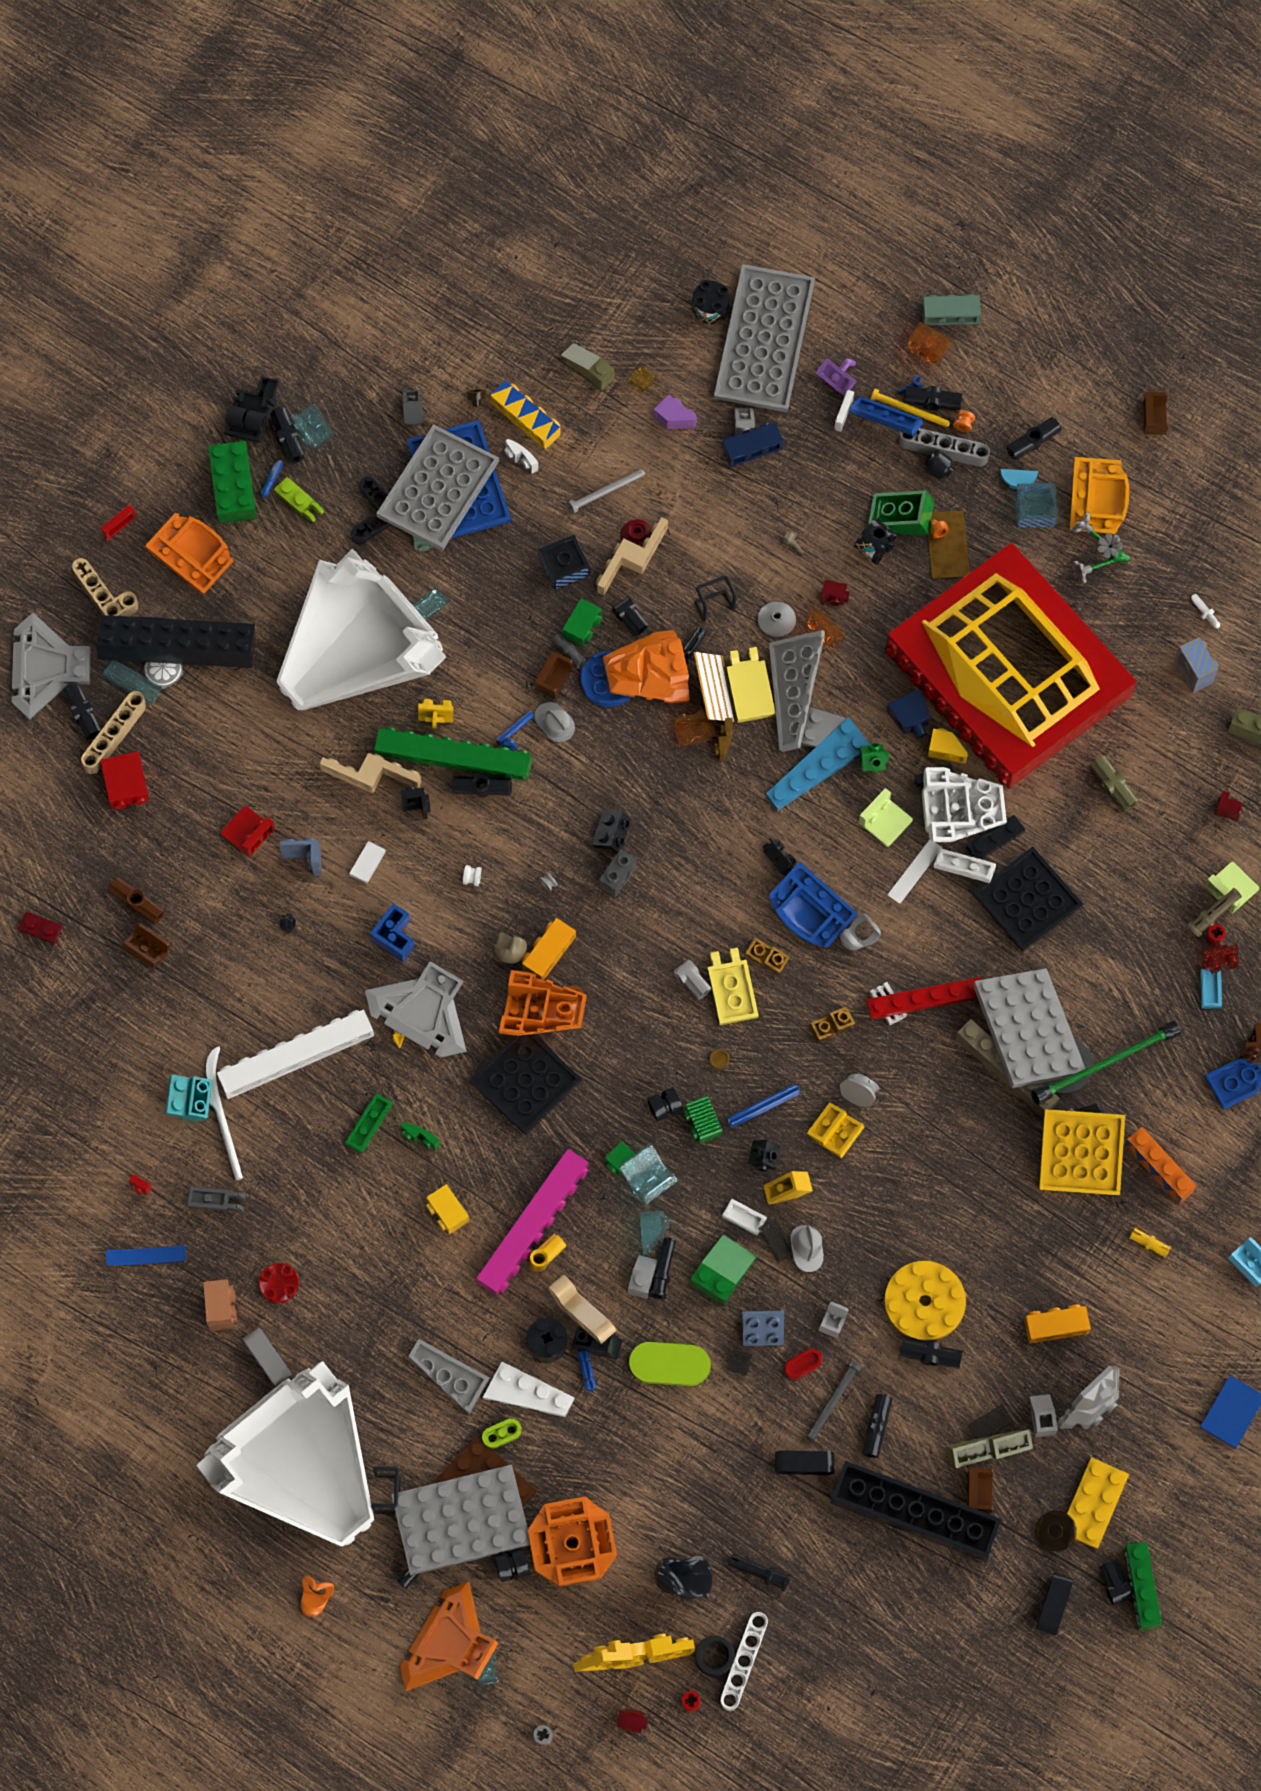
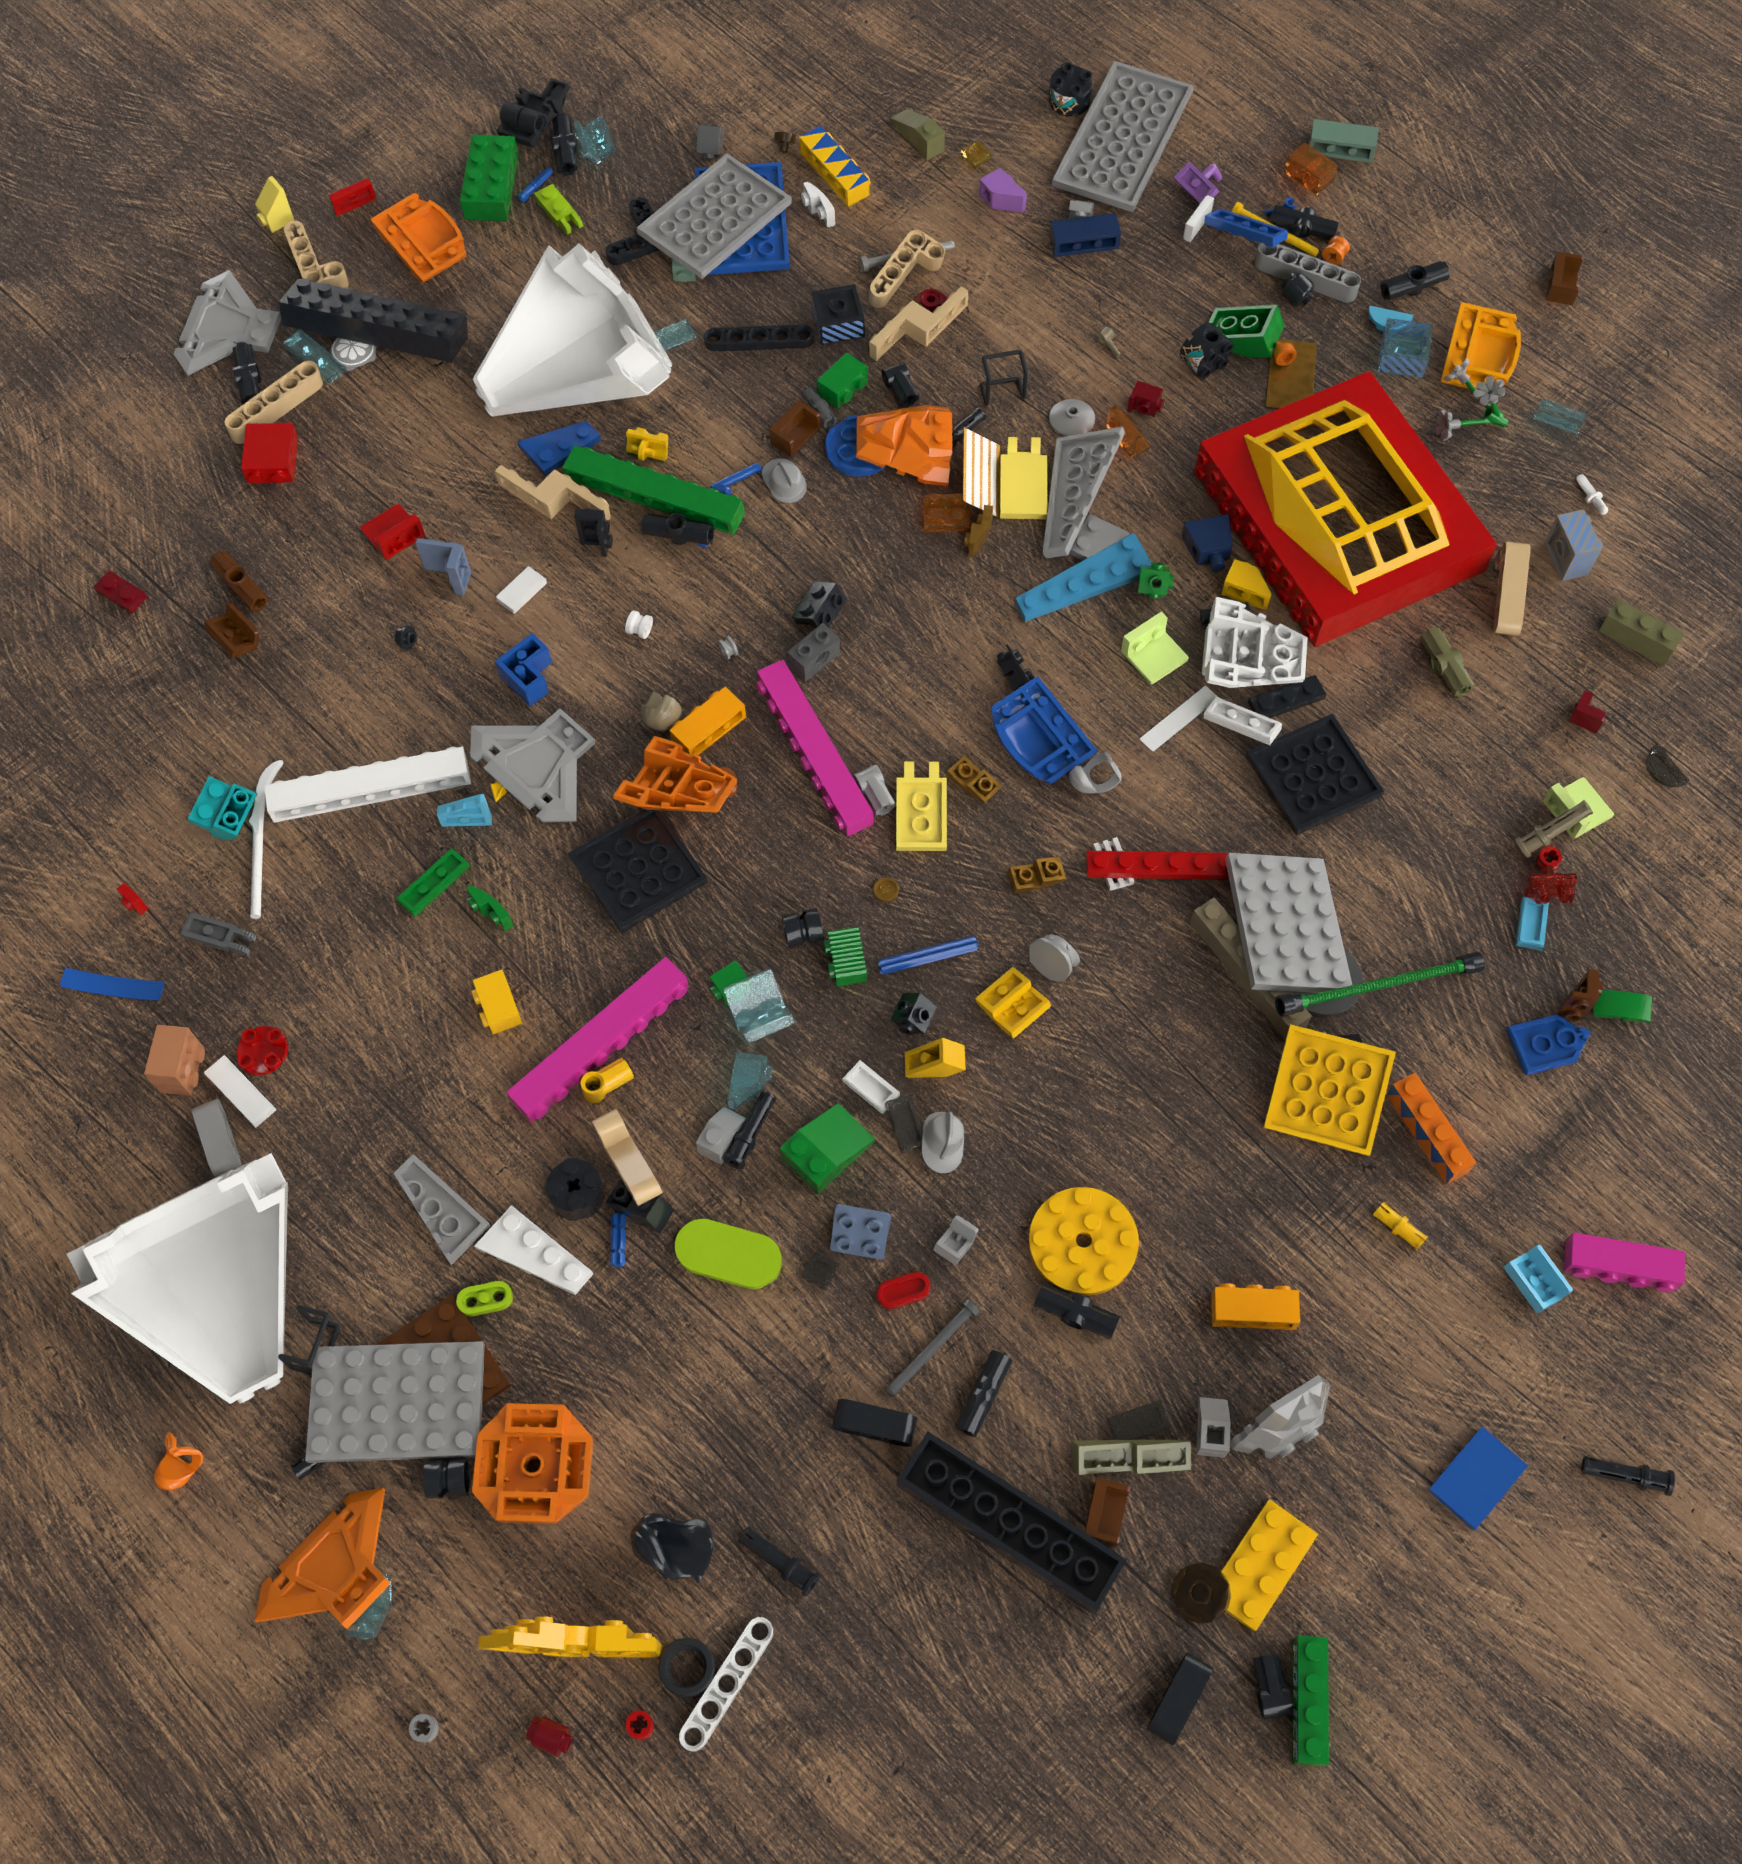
camera: 15 degrees right, 5 degrees down
(55, 547) = (273, 206): none -> light yellow slope
(271, 1317) = (240, 1091): none -> white tile
(362, 726) = (552, 448): none -> blue wing
(379, 1063) = (465, 812): none -> medium azure wing
(494, 600) = (769, 342): none -> black beam
(606, 509) = (900, 270): none -> tan beam
(637, 953) = (815, 748): none -> dark pink brick
(1153, 711) = (1513, 567): none -> tan beam
(1170, 545) = (1560, 416): none -> clear light blue tile

